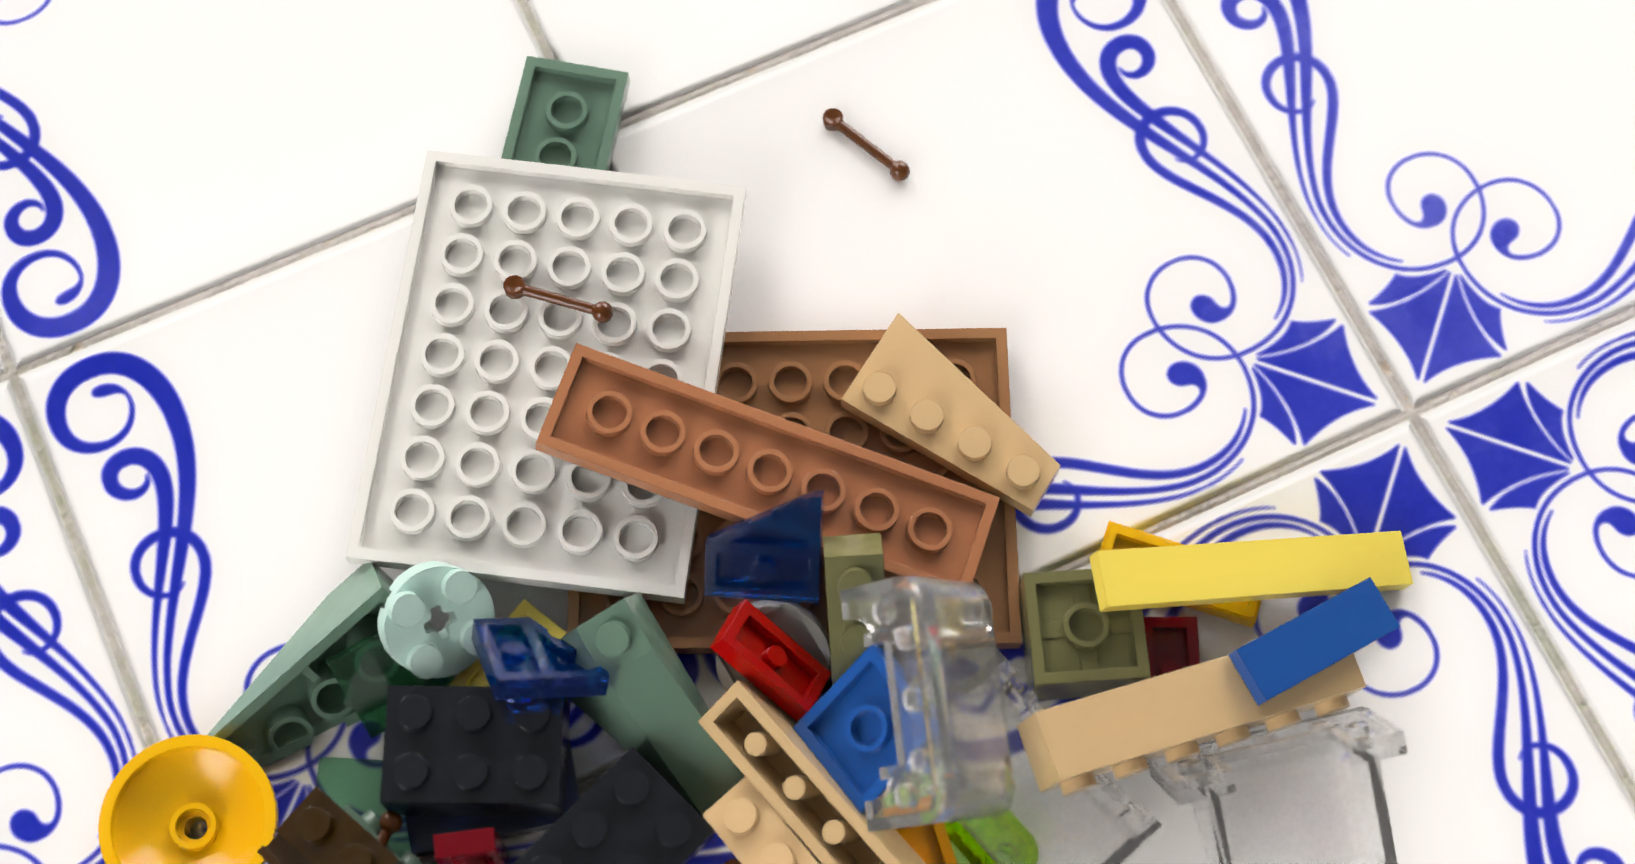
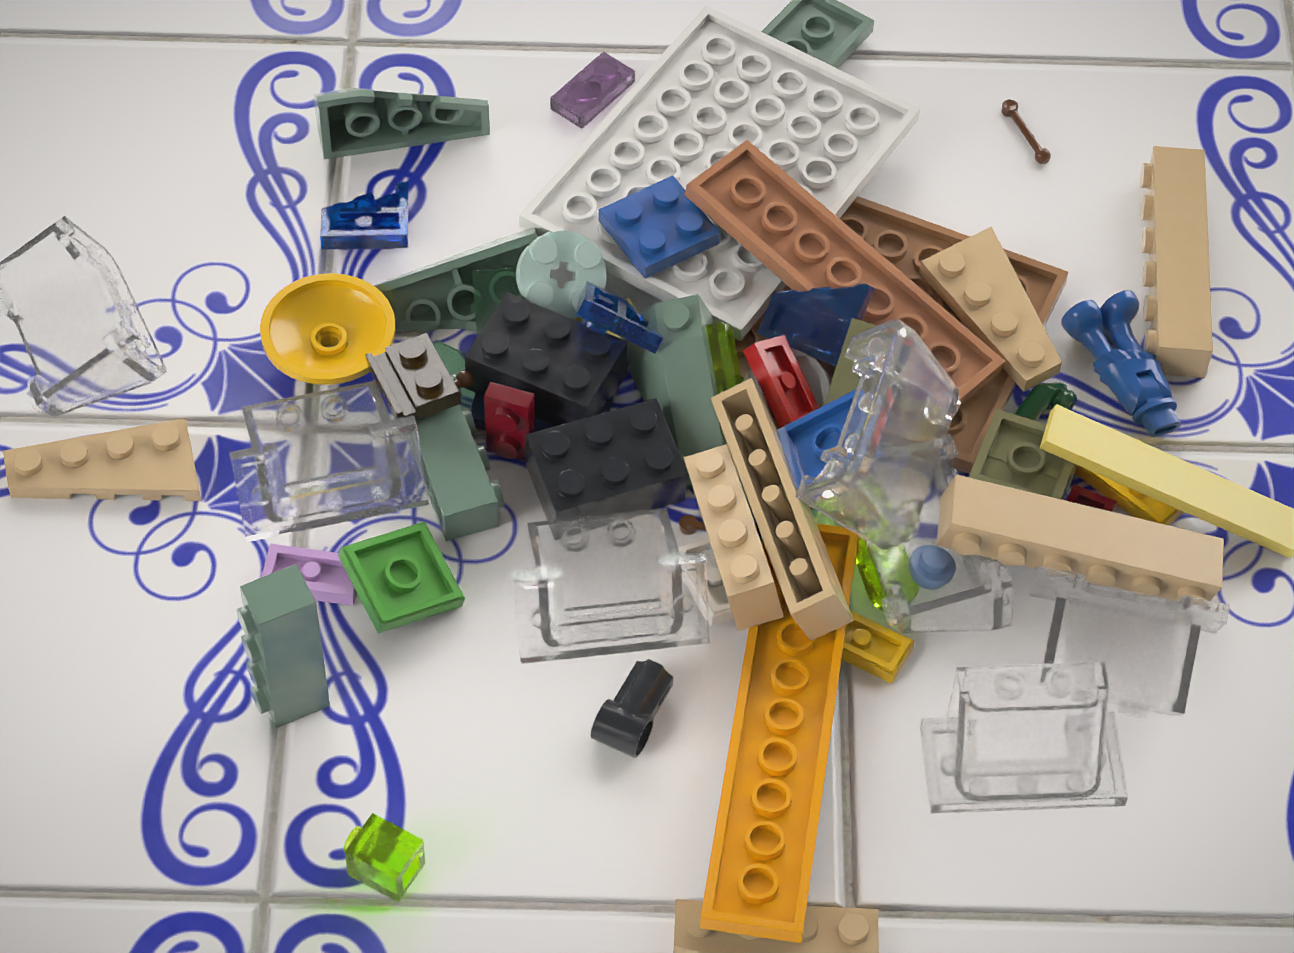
camera: 25 degrees right, 15 degrees down
(99, 483) = (381, 120): none -> sand green wedge
(160, 631) = (367, 222): none -> clear blue wing
(339, 313) = (592, 89): none -> clear purple plate
(515, 289) = (723, 105): reddish brown hinge -> none
(521, 501) = (658, 227): none -> blue plate
(685, 652) = (724, 356): none -> clear neon green tile
(1042, 815) = (931, 567): none -> medium blue plate
(1050, 514) = (1045, 397): none -> dark green arm
(1117, 255) = (1177, 261): none -> tan brick
(1139, 435) = (1127, 370): none -> blue piece
(1313, 641) = (1194, 534): blue tile -> none

